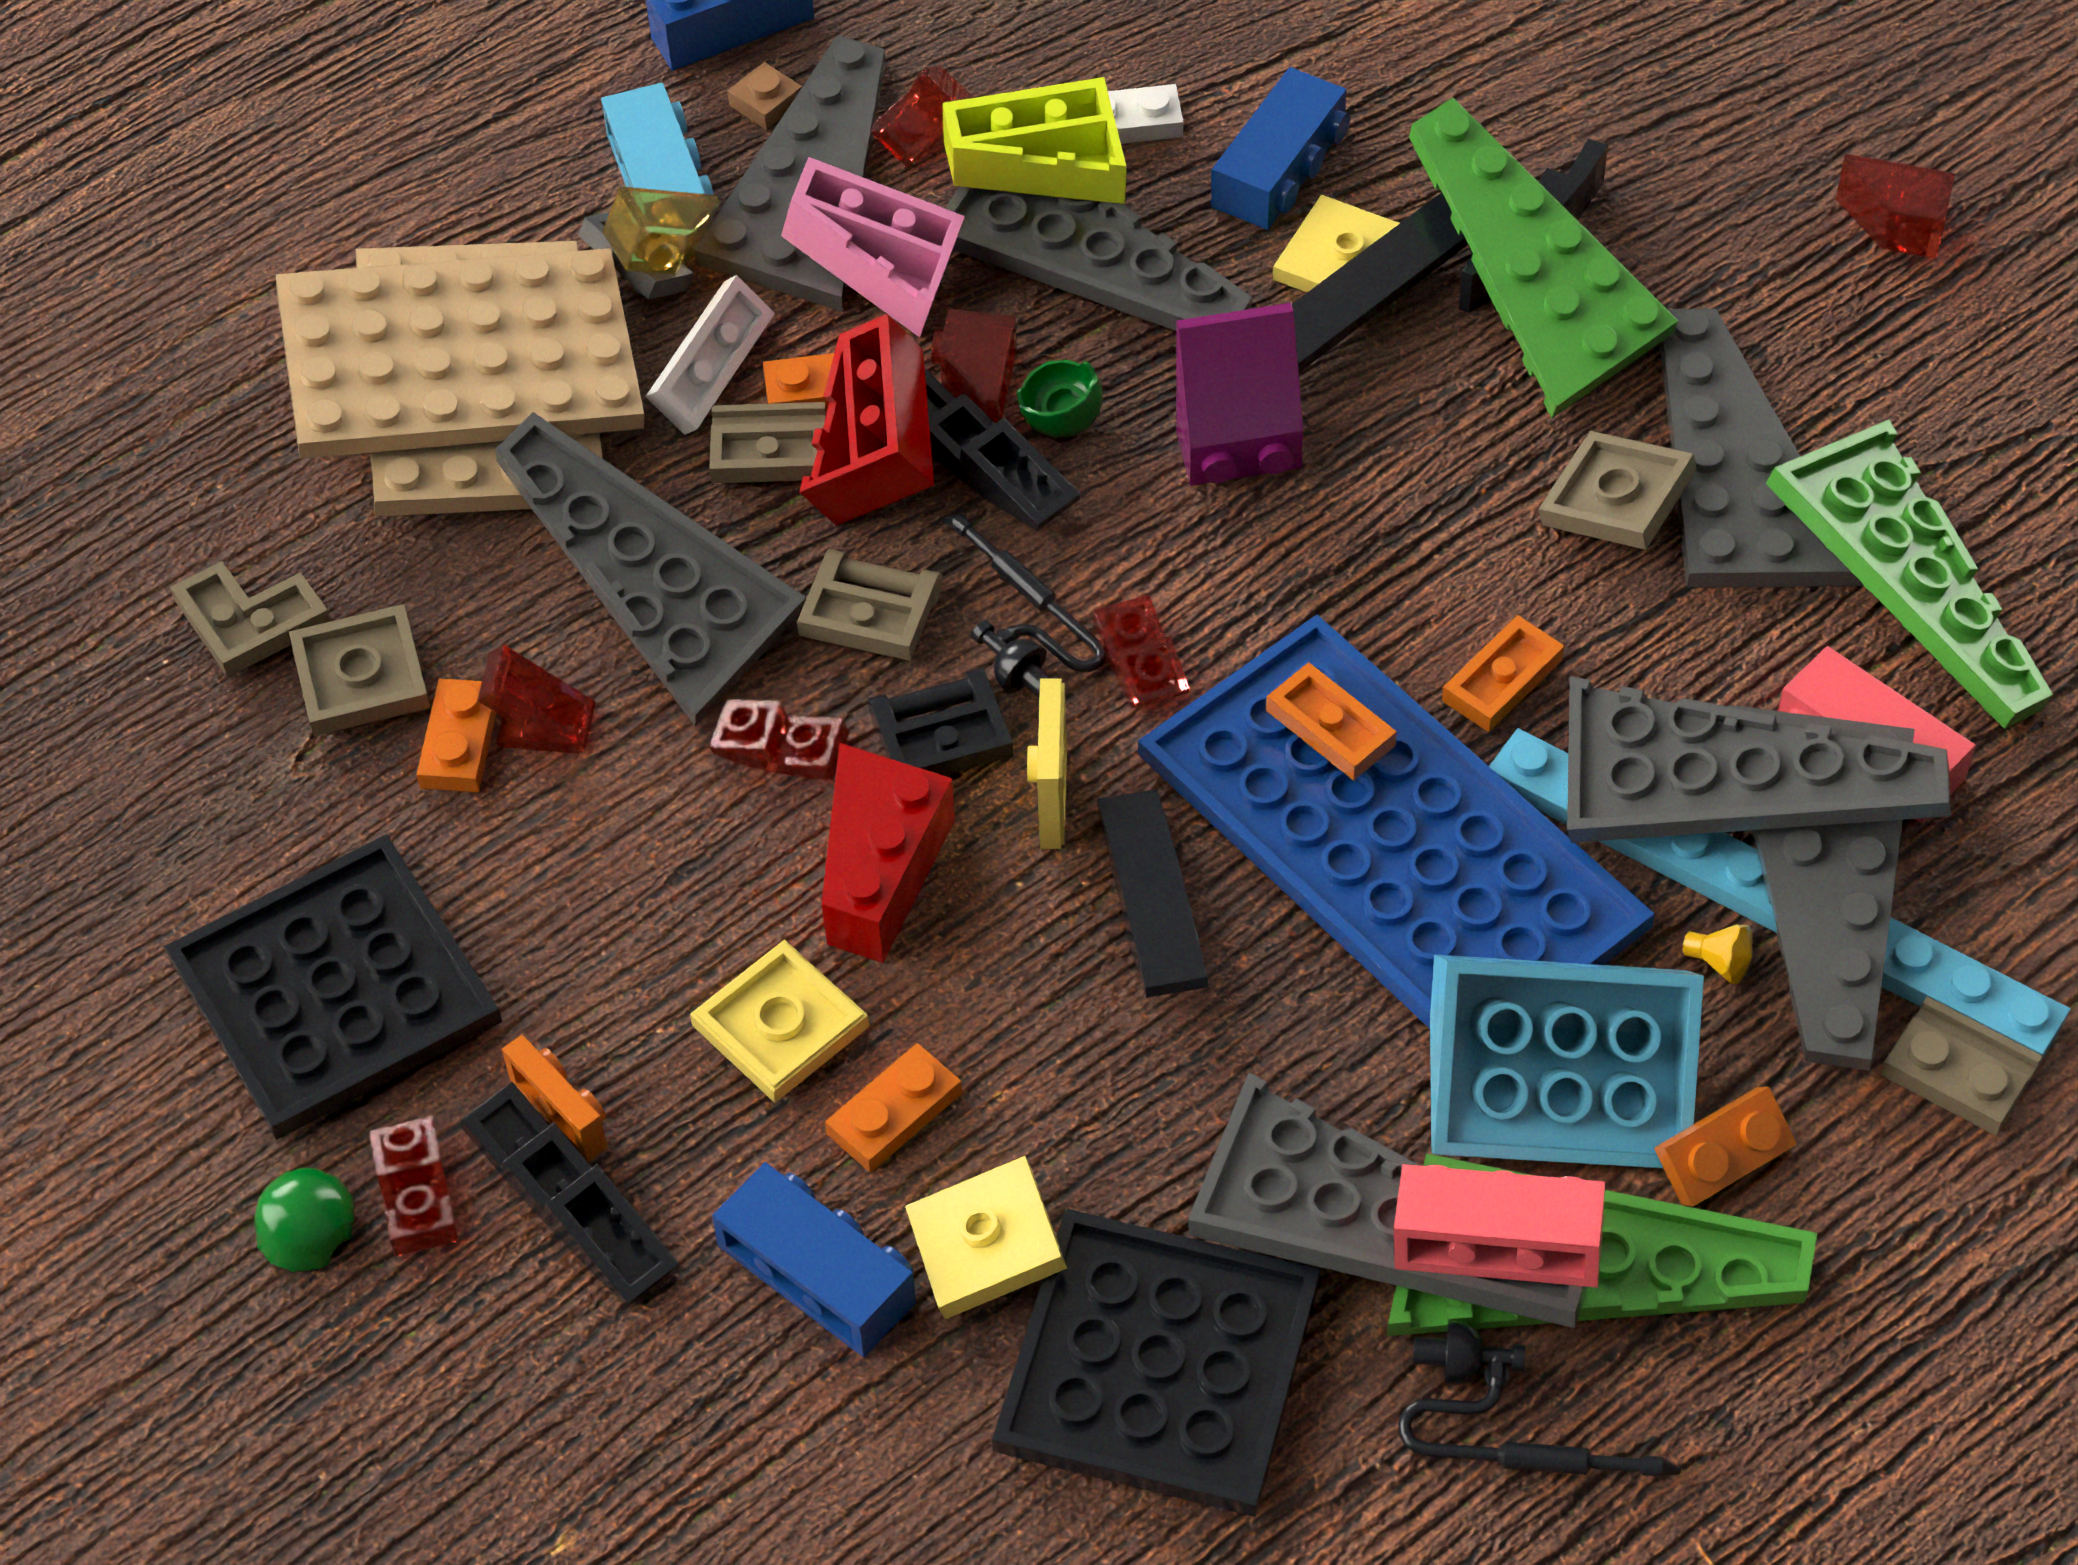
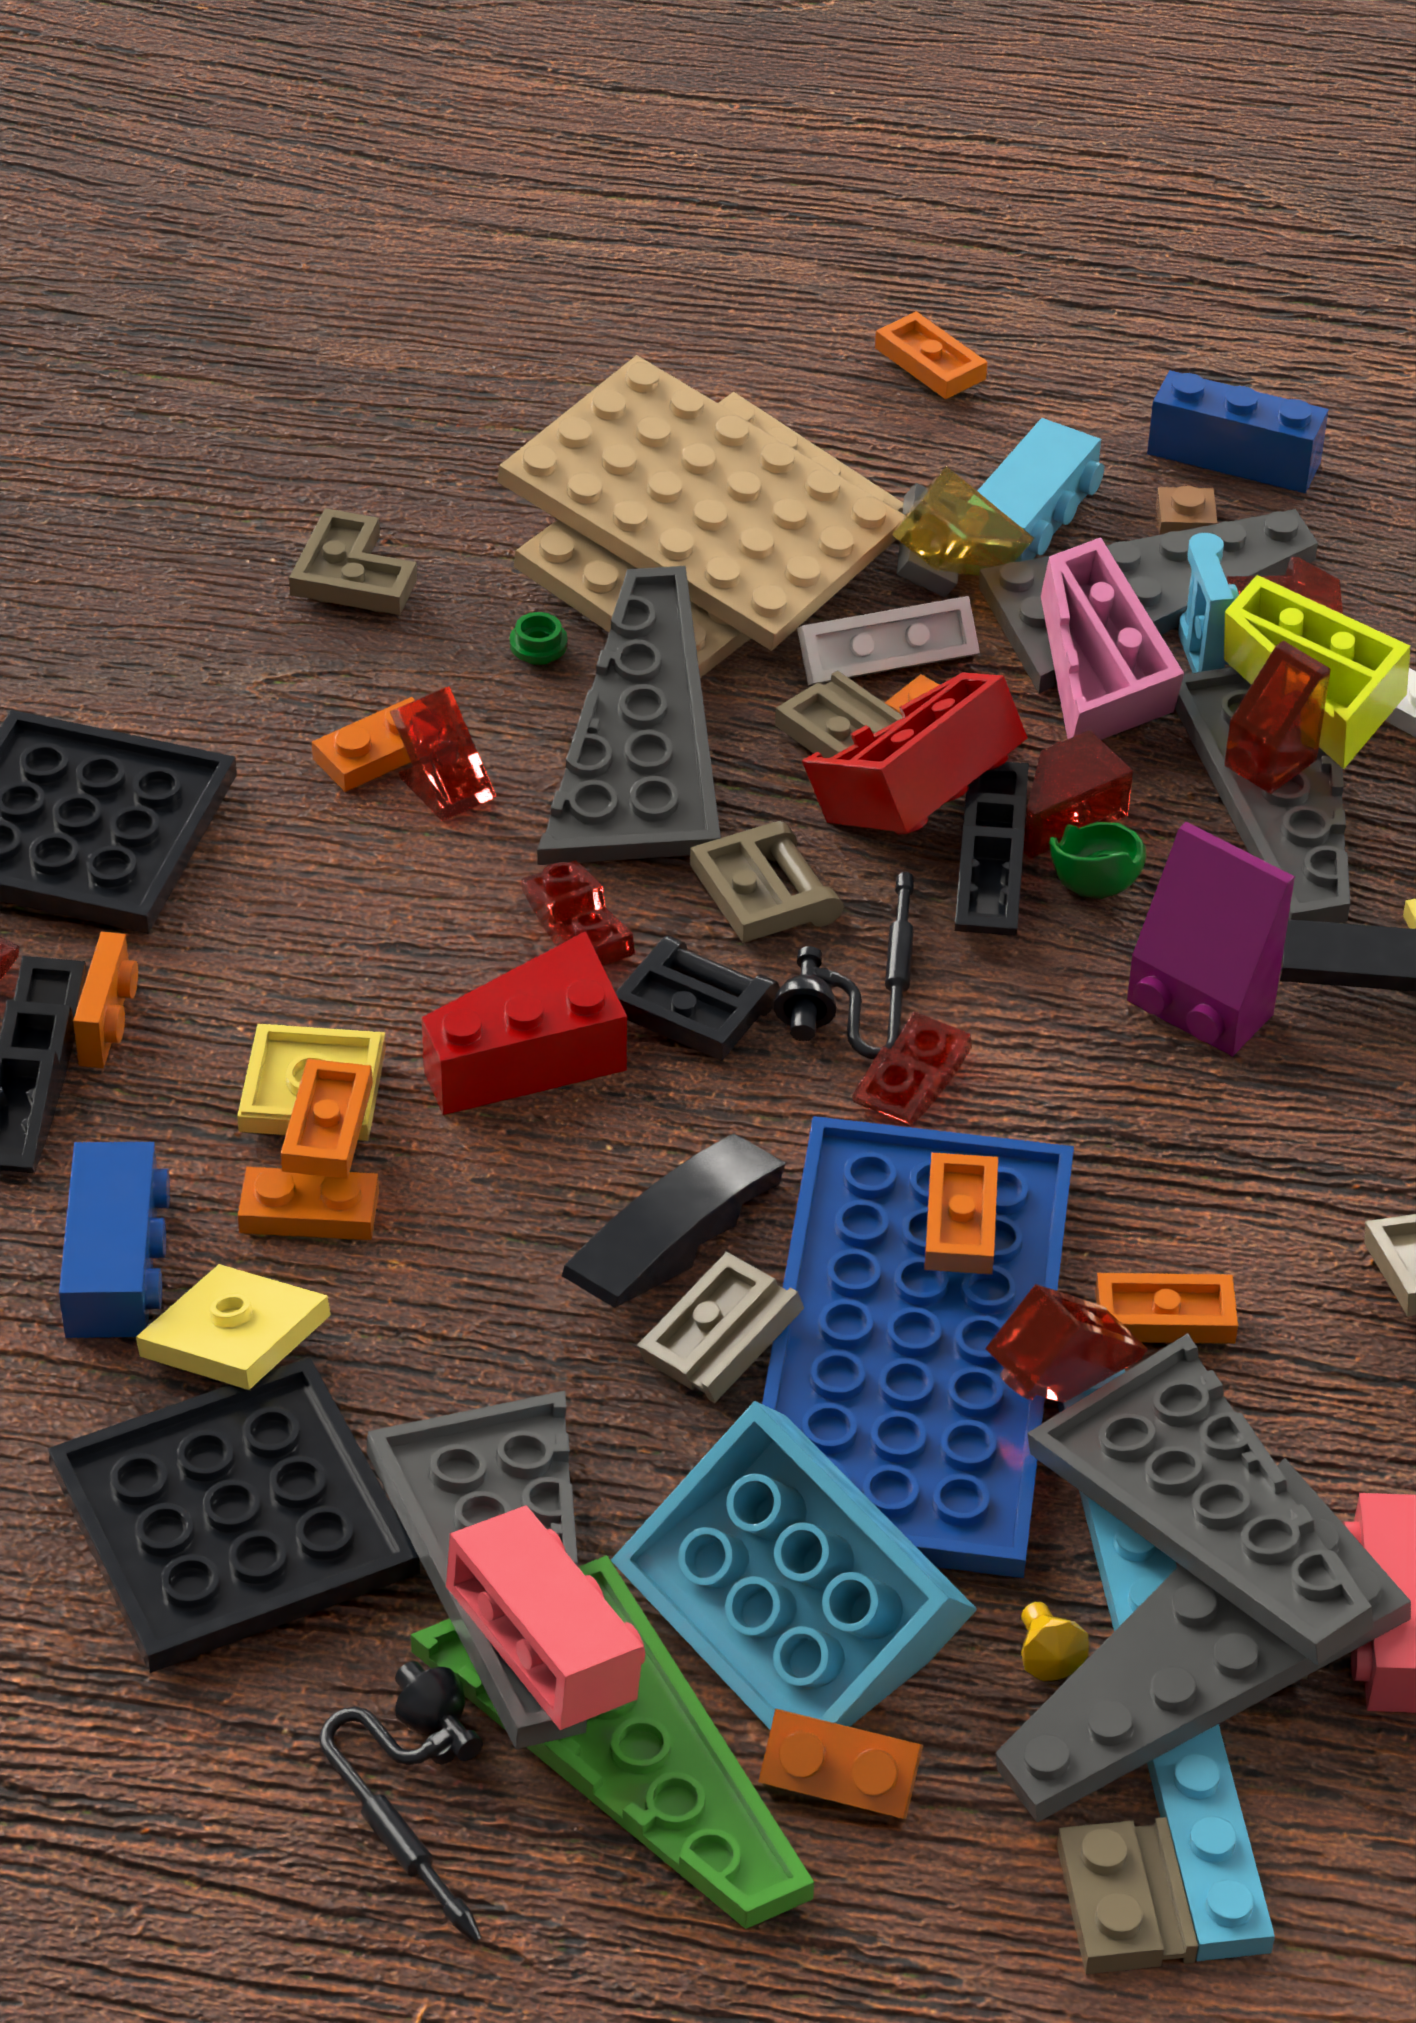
camera: 45 degrees right, 10 degrees down
(359, 670) = (370, 651): dark tan plate -> none
(434, 109) = (931, 355): none -> orange plate
(462, 546) = (538, 638): none -> green plate
(855, 1034) = (326, 1118): none -> orange plate
(917, 149) = (1208, 598): none -> medium azure plate
(1049, 764) = (714, 1069): light yellow plate -> none
(1074, 199) = (1279, 719): none -> clear red slope
(1281, 937) = (720, 1326): none -> dark tan plate
(1512, 756) = (1061, 1346): none -> clear red slope

